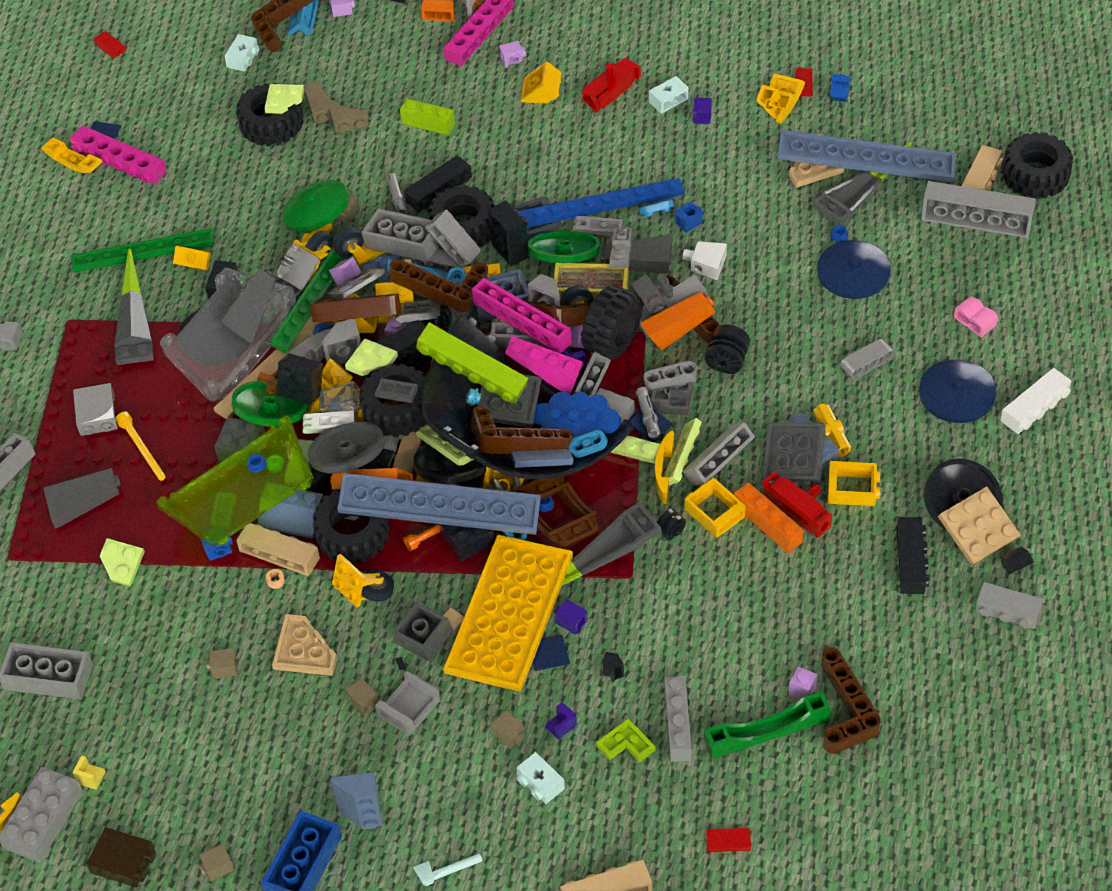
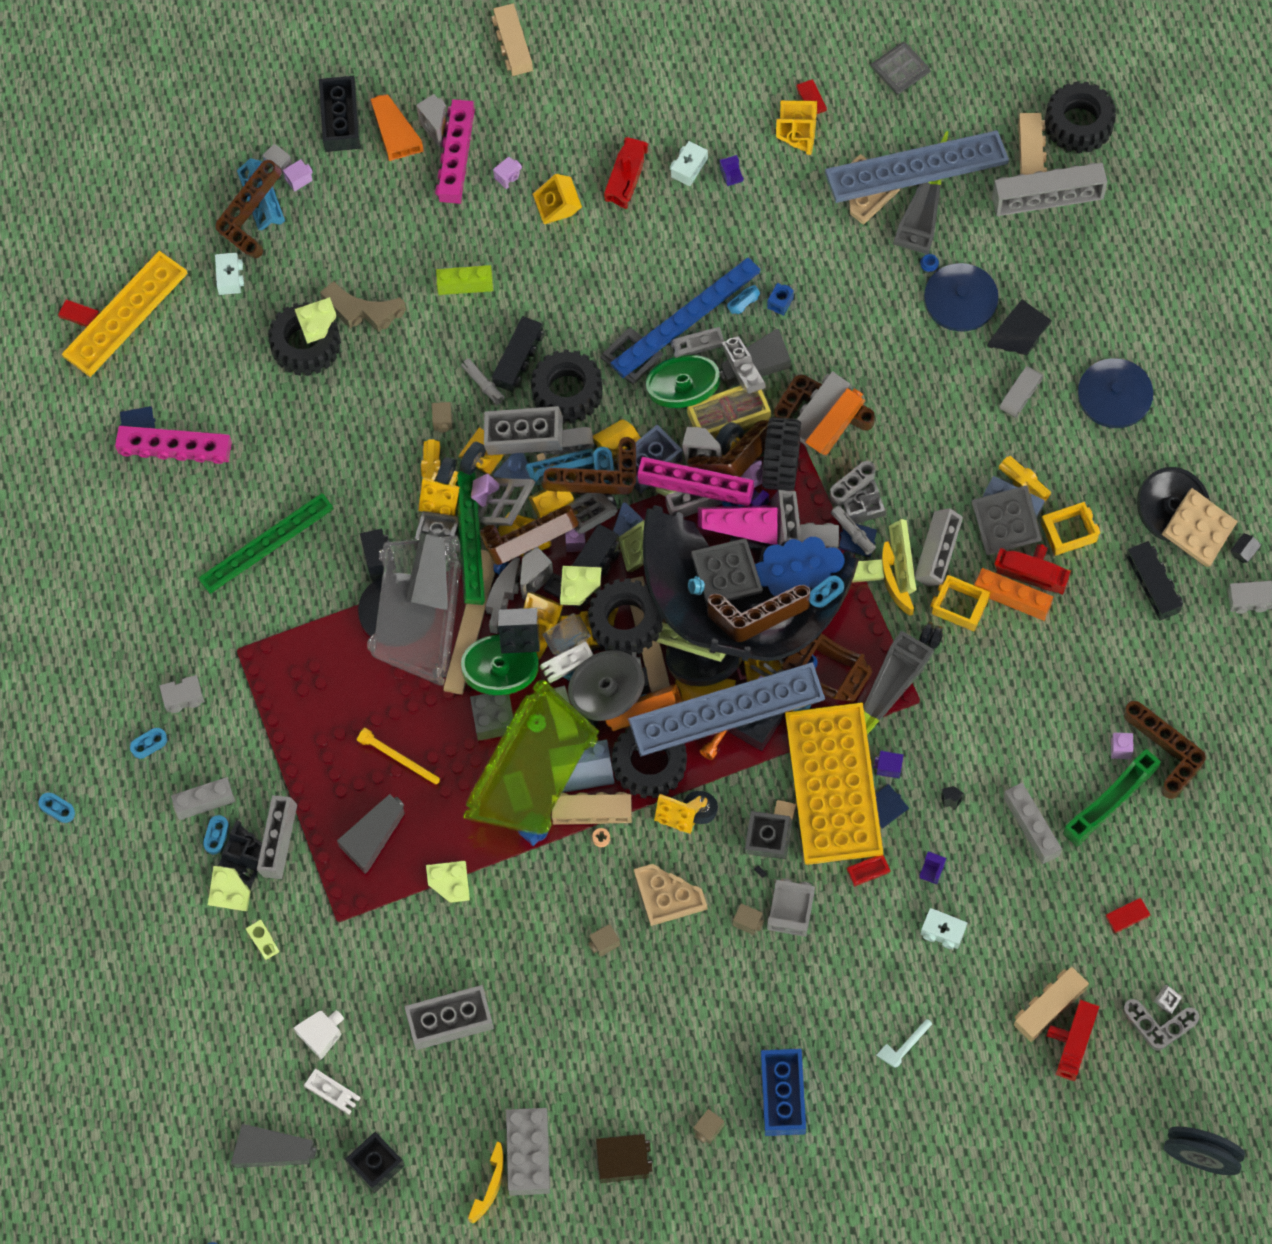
camera: 25 degrees left, 15 degrees up
(59, 152) = (126, 466): yellow slope -> none
(88, 774) = (547, 1096): light yellow panel -> none
(95, 409) = (332, 737): light grey panel -> none
(133, 336) = (319, 644): dark grey plate -> none
(143, 54) = (124, 313): none -> yellow plate
(191, 257) = (321, 533): yellow plate -> none
(256, 463) = (532, 736): blue plate -> none
(270, 381) = (487, 641): clear orange arm -> none
(297, 266) = (440, 506): light grey hinge -> none
(315, 206) = (413, 428): green dish -> none
(358, 799) = (807, 1019): sand blue slope -> none
(396, 390) = (629, 612): dark grey plate -> none
(453, 238) = (579, 418): light grey brick -> none
(472, 363) = (683, 555): lime brick -> none
(500, 700) = (868, 870): none -> red tile
(508, 233) = (625, 389): black brick -> none
(508, 729) = (892, 895): dark tan brick -> none
(542, 458) = (793, 623): sand blue tile -> none
(626, 737) = (998, 858): lime plate -> none
(653, 292) = (805, 410): dark grey brick -> none
(707, 258) = (821, 339): white torso -> none
(727, 349) = (893, 434): black wheel -> none
(840, 87) = (853, 94): blue brick -> none
(892, 309) = (1020, 329): none -> black slope
(895, 84) = (900, 68): none -> clear piece
(976, 316) = (1097, 307): bright pink brick -> none
(1036, 401) = (1191, 378): white brick -> none

